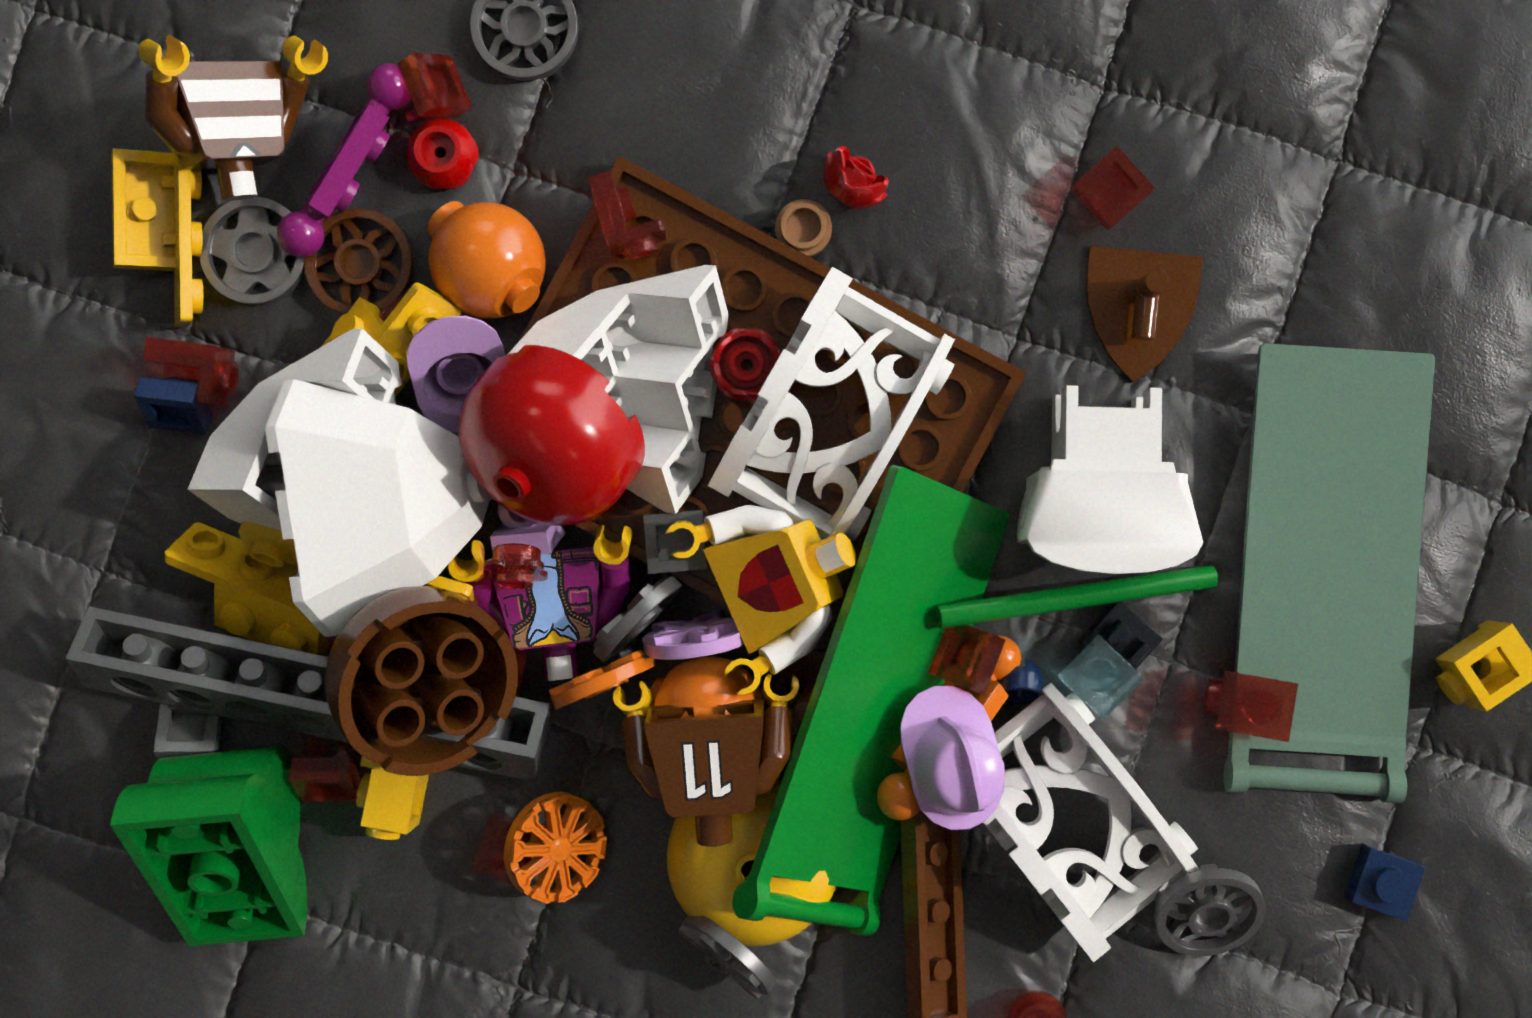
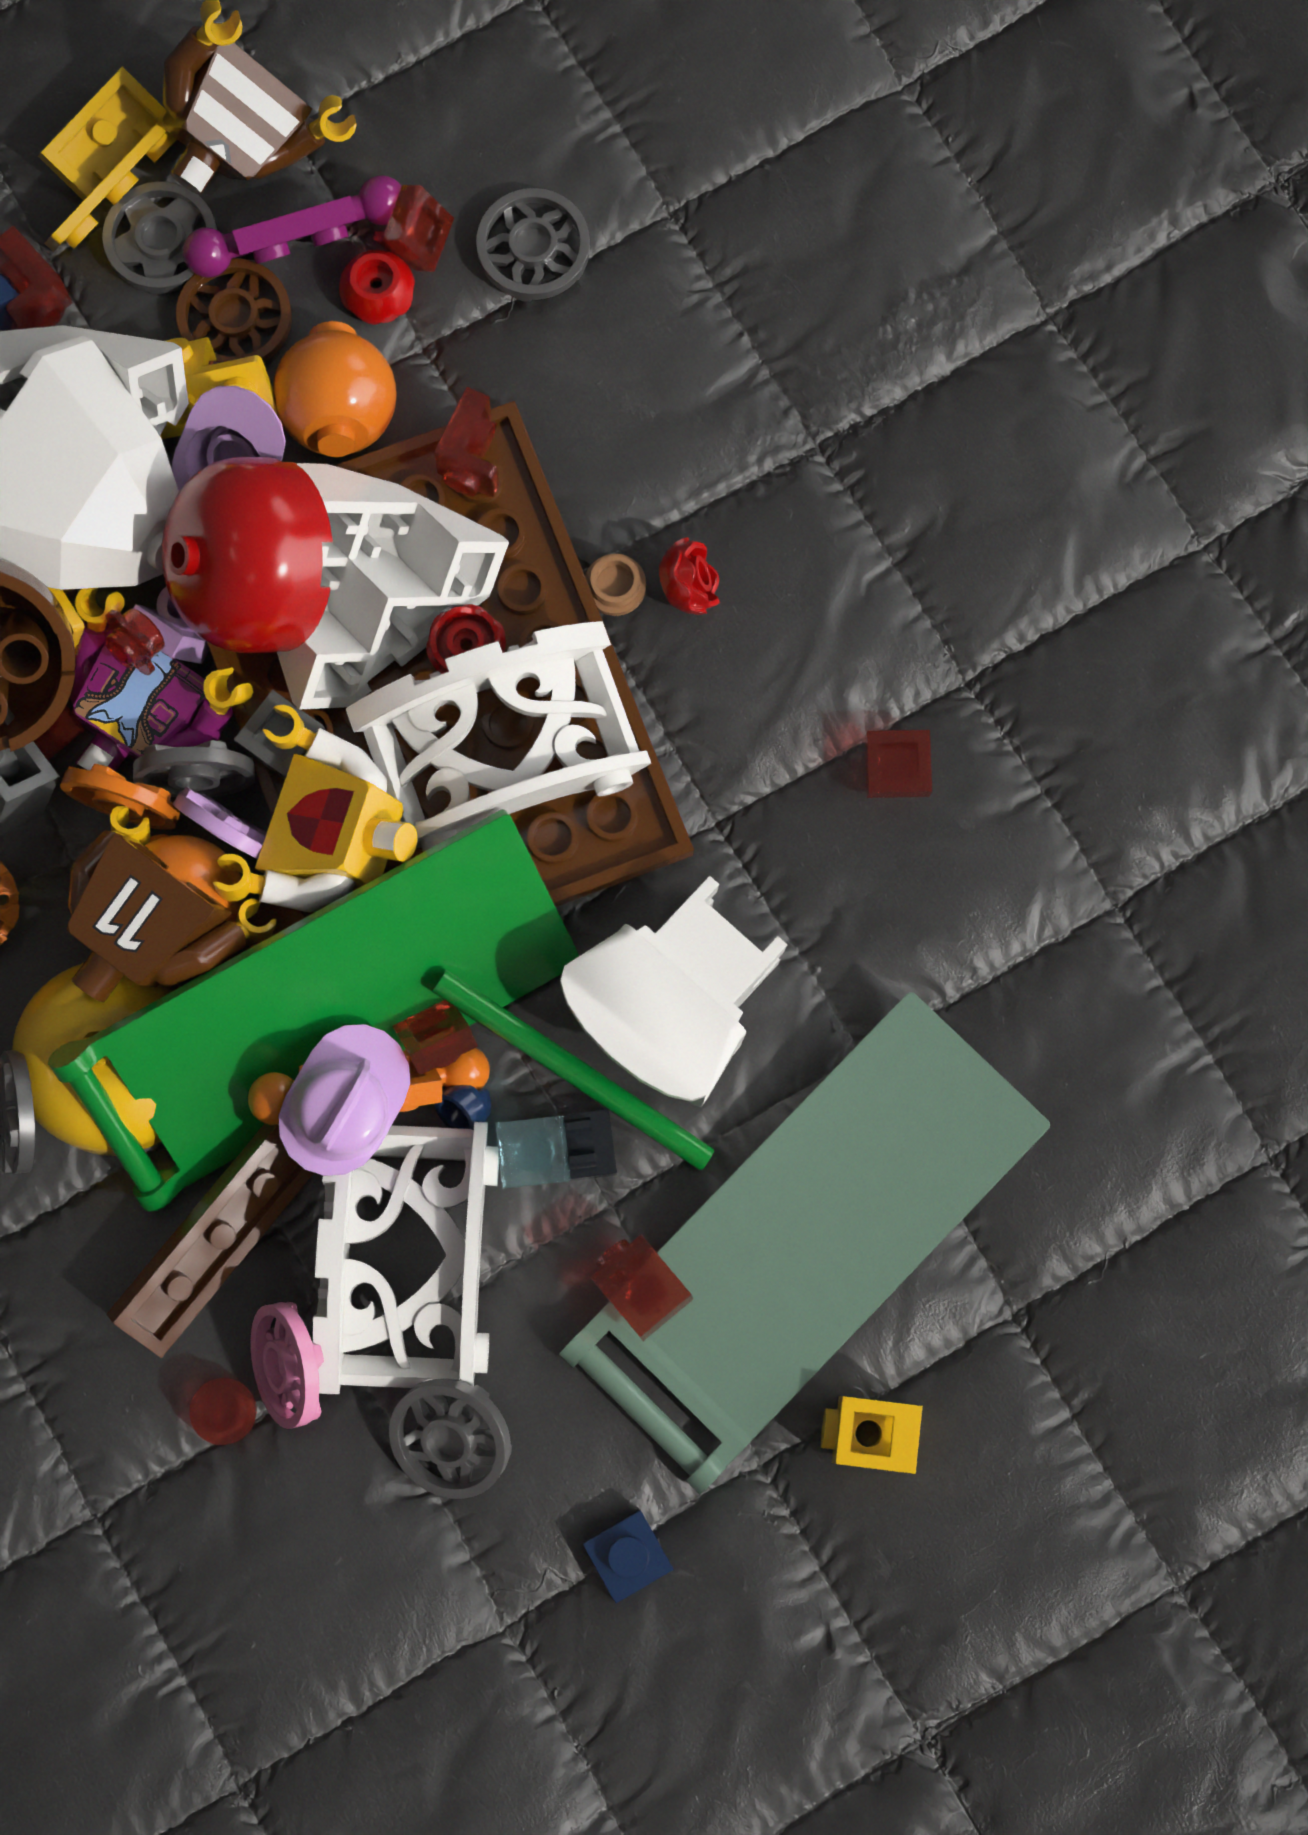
camera: 35 degrees right, 10 degrees down
(1060, 960) = (286, 1365): none -> bright pink wheel
(1140, 303) = (845, 882): reddish brown shield -> none

